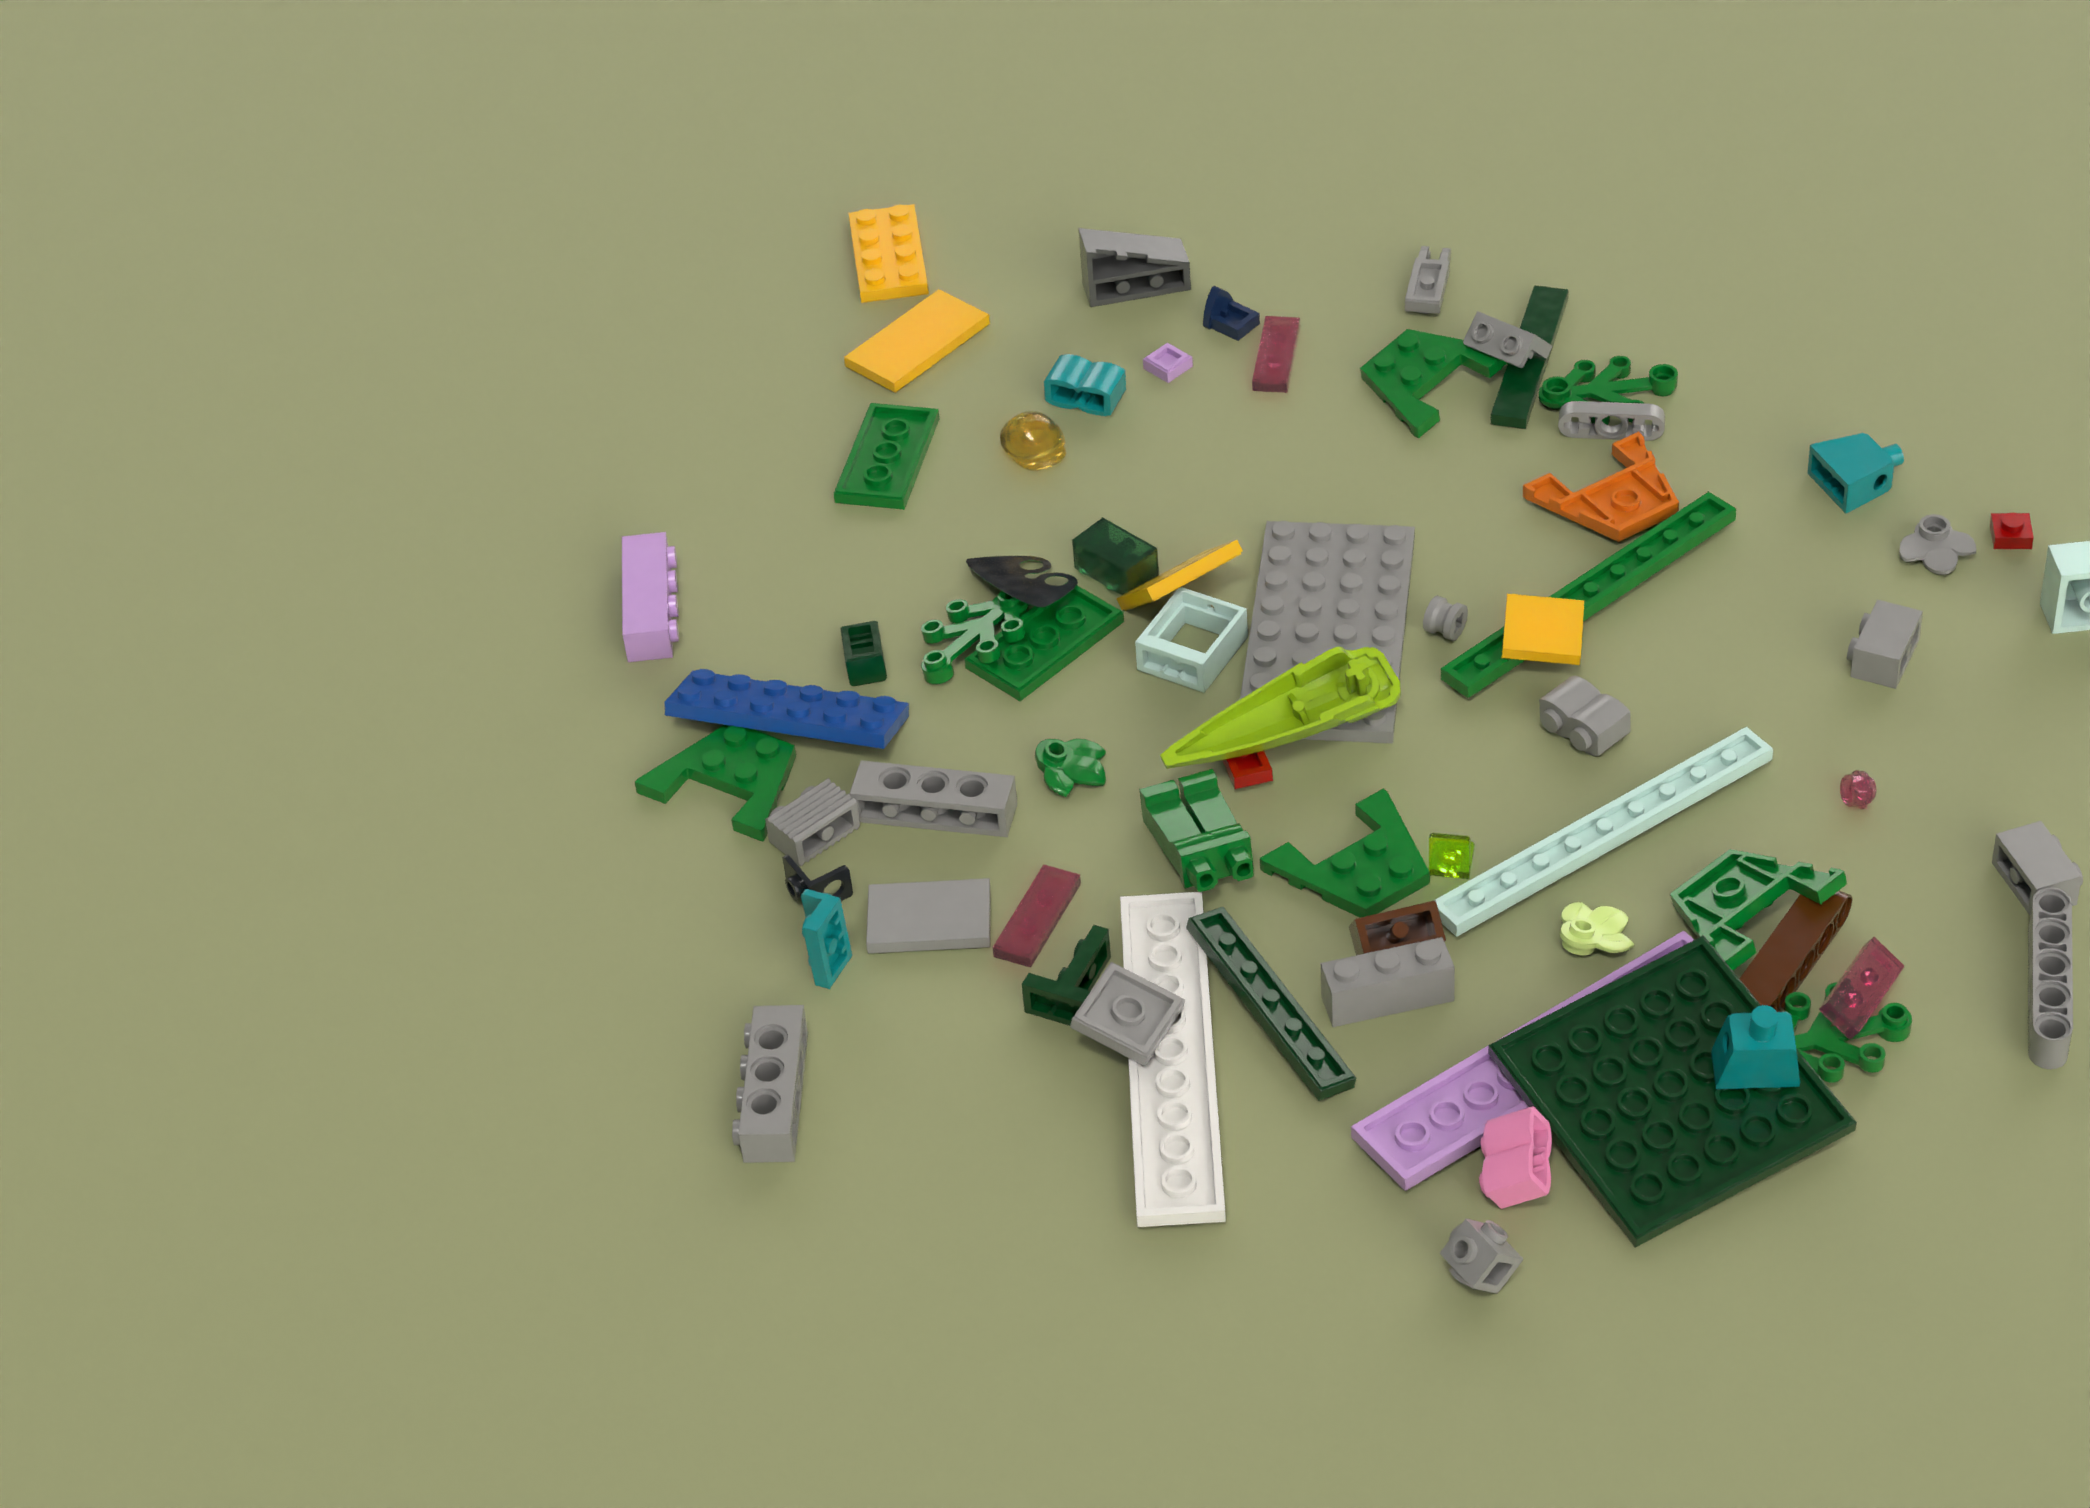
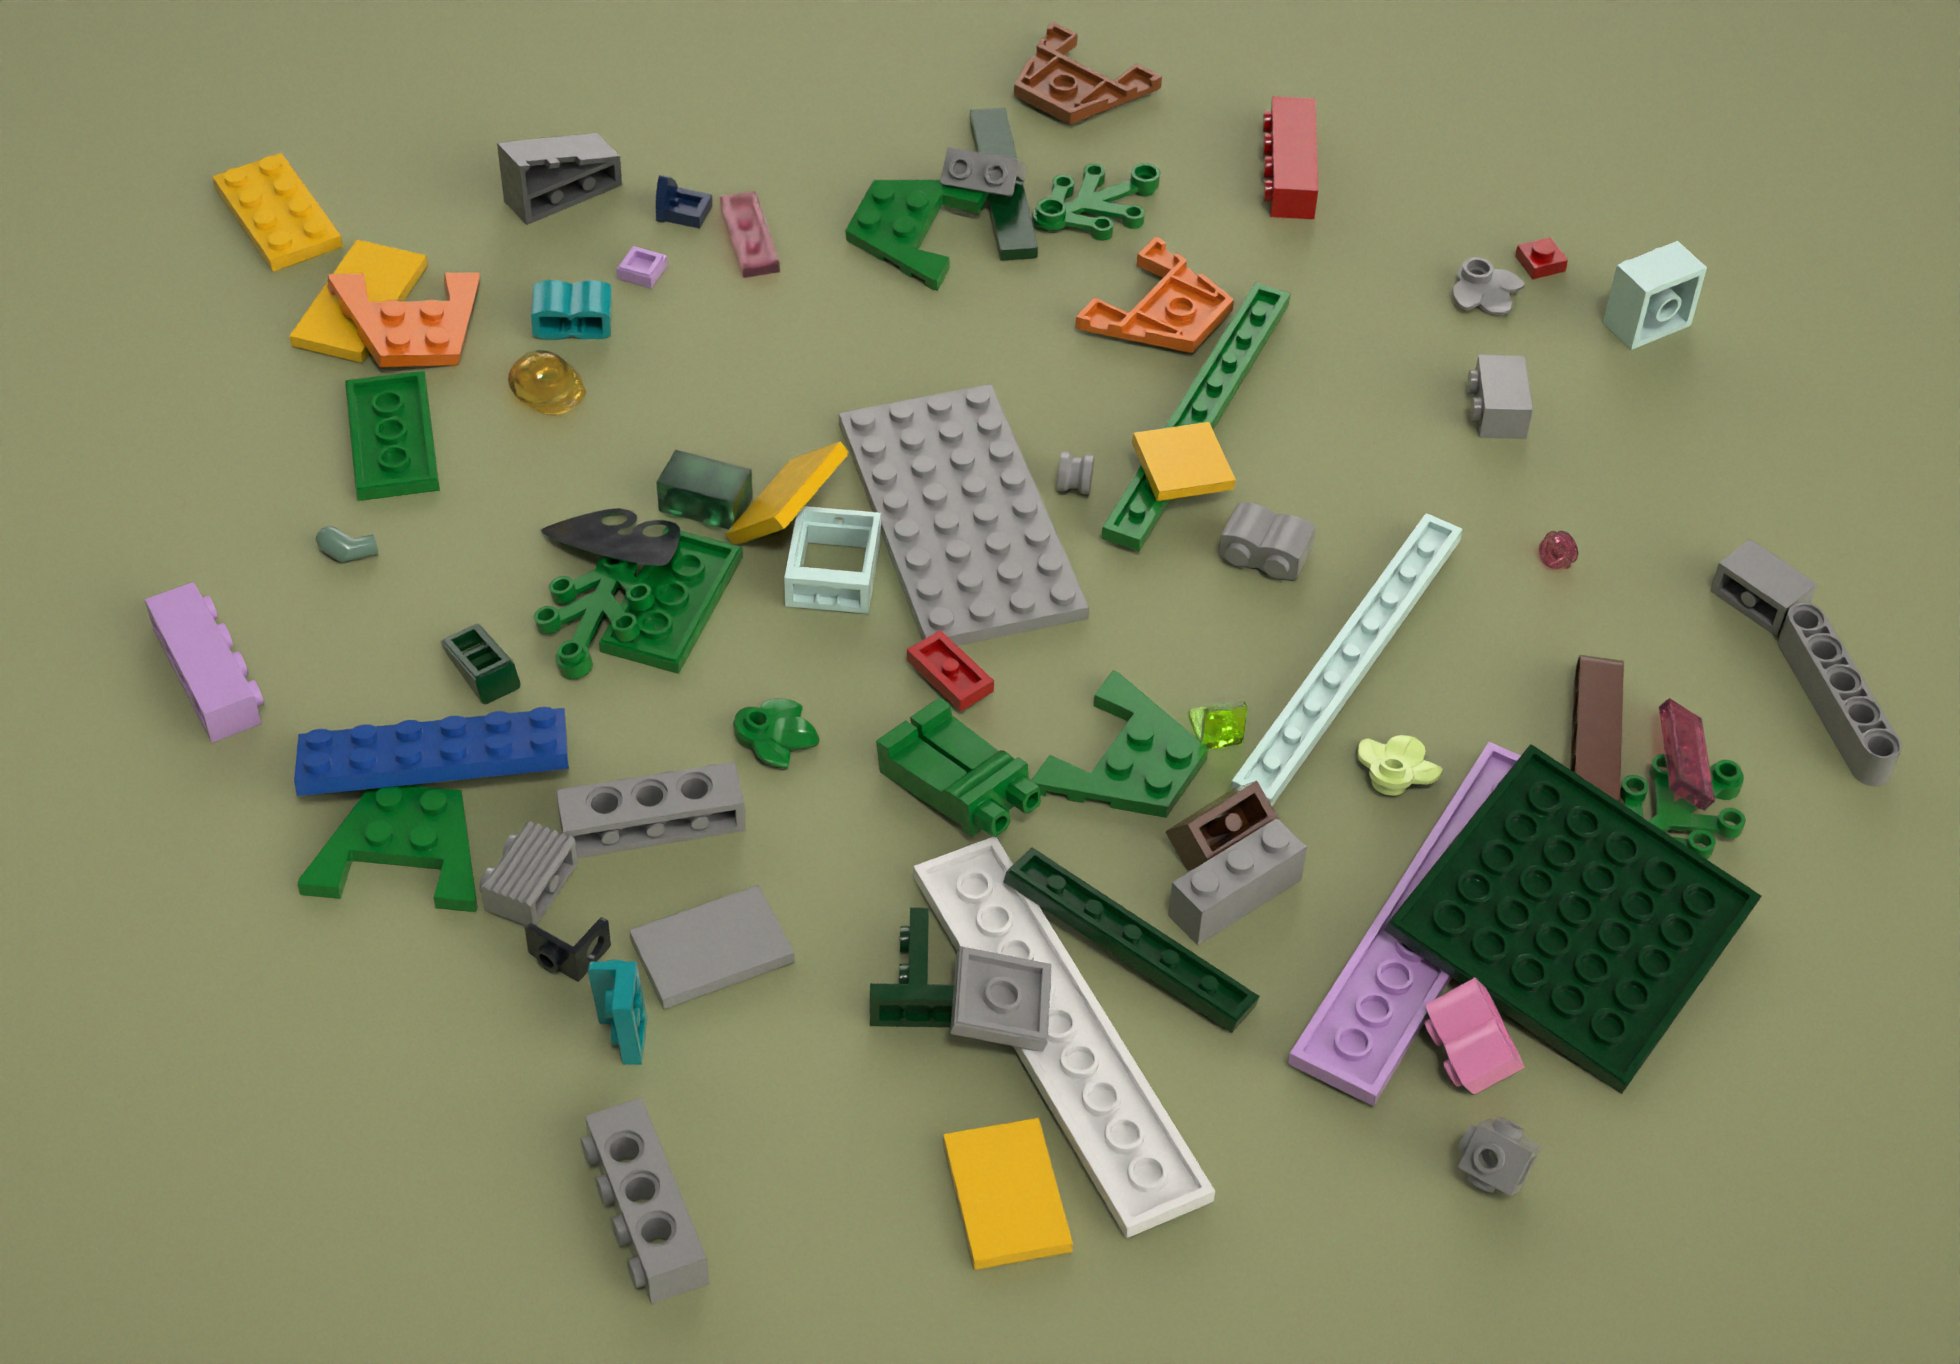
camera: 30 degrees left, 5 degrees up
(801, 536) = (343, 547): none -> sand green arm
(947, 374) = (410, 330): none -> orange wing
(1036, 916) = (828, 912): clear pink tile -> none
(1060, 1165) = (1007, 1193): none -> yellow tile
(1293, 706) = (1003, 595): lime piece -> none
(1428, 282) = (864, 127): light grey hinge -> none
(1600, 410) = (1088, 239): light grey beam -> none
(1640, 285) = (1072, 89): none -> dark orange wing
(1737, 889) = (1515, 684): green wing -> none
(1756, 1051) = (1668, 852): teal torso -> none
(1814, 388) = (1292, 157): none -> brick
(1853, 469) = (1371, 230): teal torso -> none

